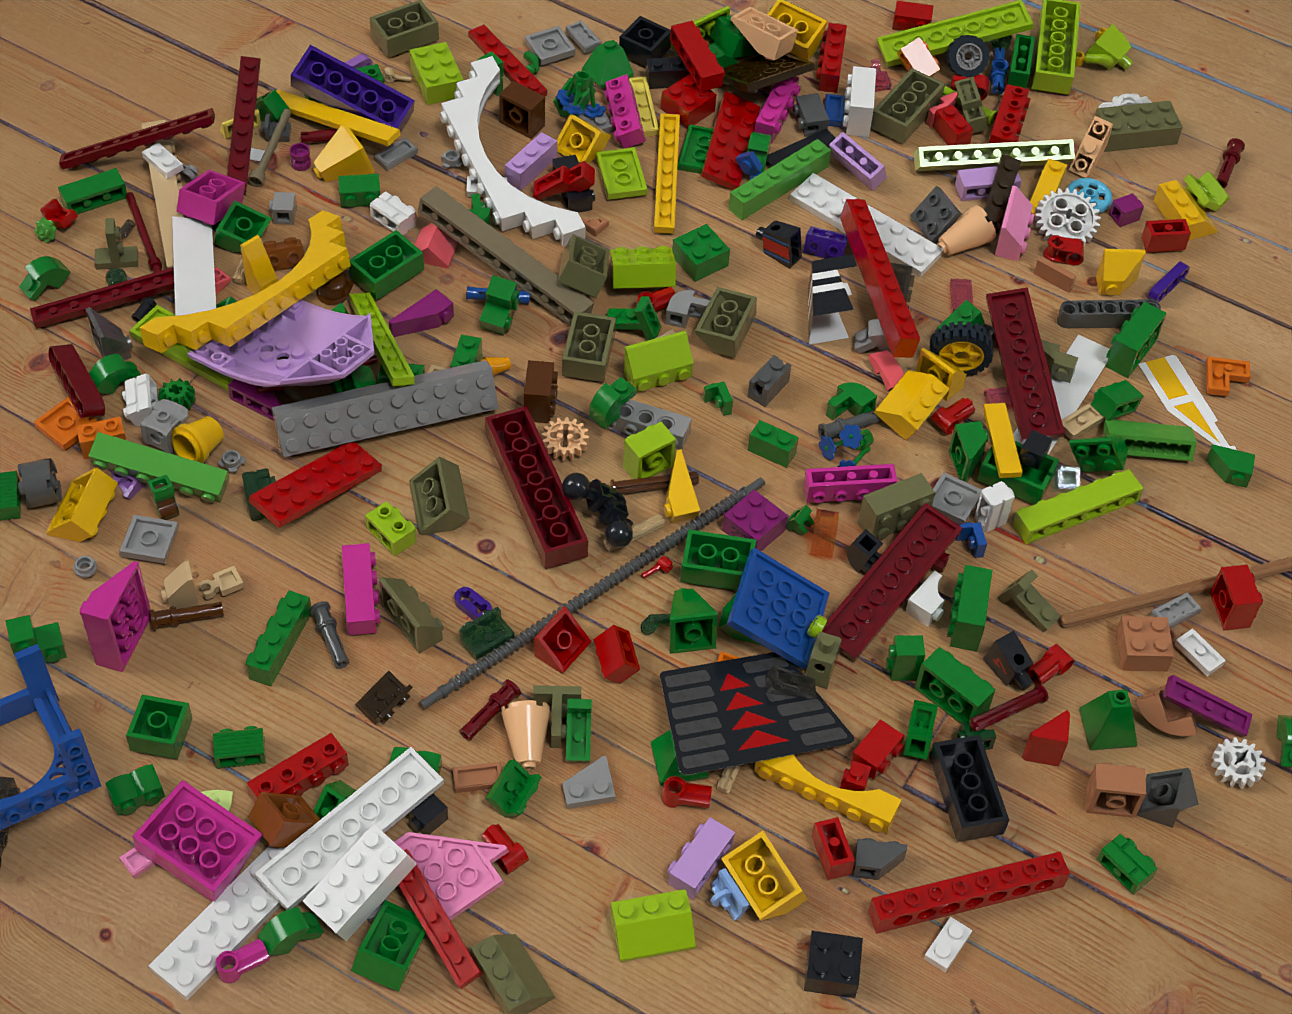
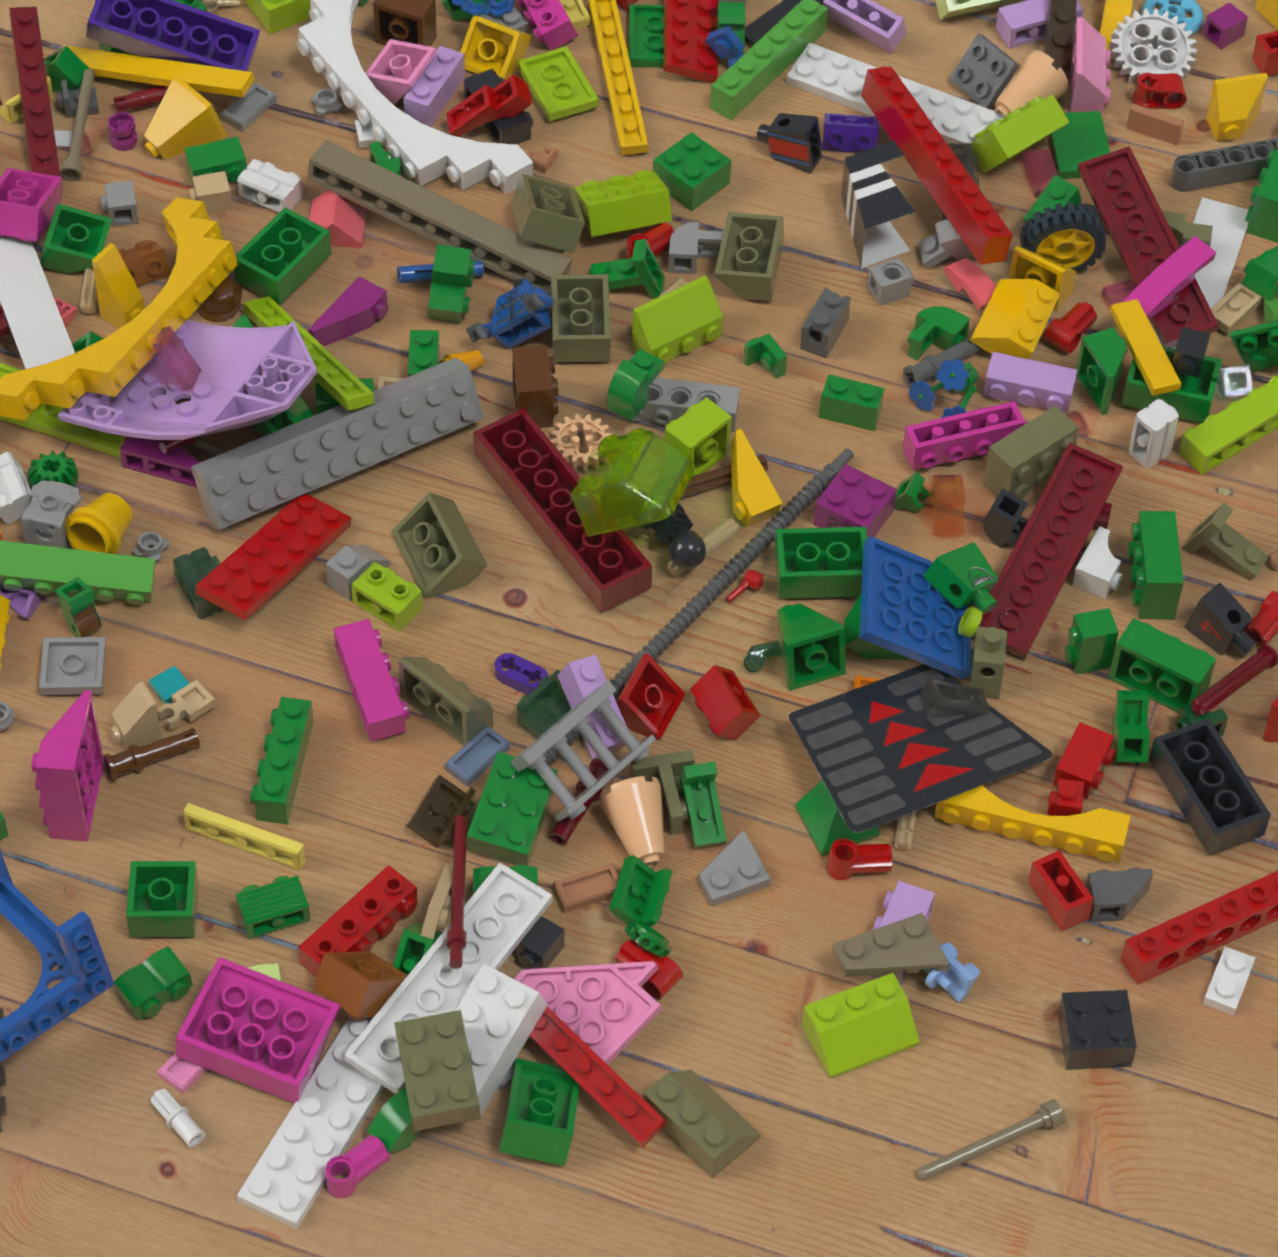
camera: 10 degrees left, 0 degrees up
(123, 896) = (177, 1118): none -> white axle
(214, 564) = (168, 683): none -> teal tile
(234, 690) = (244, 836): none -> light yellow tile
(283, 326) = (177, 358): none -> clear pink tile
(314, 901) = (437, 1070): none -> olive brick
(327, 627) = (340, 735): dark grey pin -> none
(350, 211) = (212, 190): none -> tan brick
(360, 768) = (439, 905): none -> tan plate
(361, 797) = (457, 935): none -> dark red bar
(369, 499) = (349, 565): none -> light grey slope
(424, 661) = (476, 756): none -> sand blue tile
(434, 707) = (509, 812): none -> green brick
(476, 661) = (556, 740): none -> light grey fence
(506, 143) = (399, 68): none -> bright pink slope
(509, 825) = (648, 938): none -> green gear
(516, 640) = (578, 681): none -> lavender brick
(542, 338) = (516, 316): none -> blue torso
(591, 479) = (640, 486): none -> clear neon green windscreen
(690, 869) = (893, 947): none -> dark tan wing
(764, 878) = (986, 941): yellow slope -> none
(820, 591) = (964, 578): none -> green torso
(826, 358) = (889, 281): none -> light grey brick
(911, 451) = (1029, 382): none -> lavender brick
(948, 263) = (1017, 132): none -> lime brick
(955, 498) = (1102, 430): light grey plate -> none
(975, 537) = (1139, 478): blue bracket -> none
(993, 275) = (1078, 142): none -> green tile
(1035, 390) = (1172, 276): none -> dark pink slope

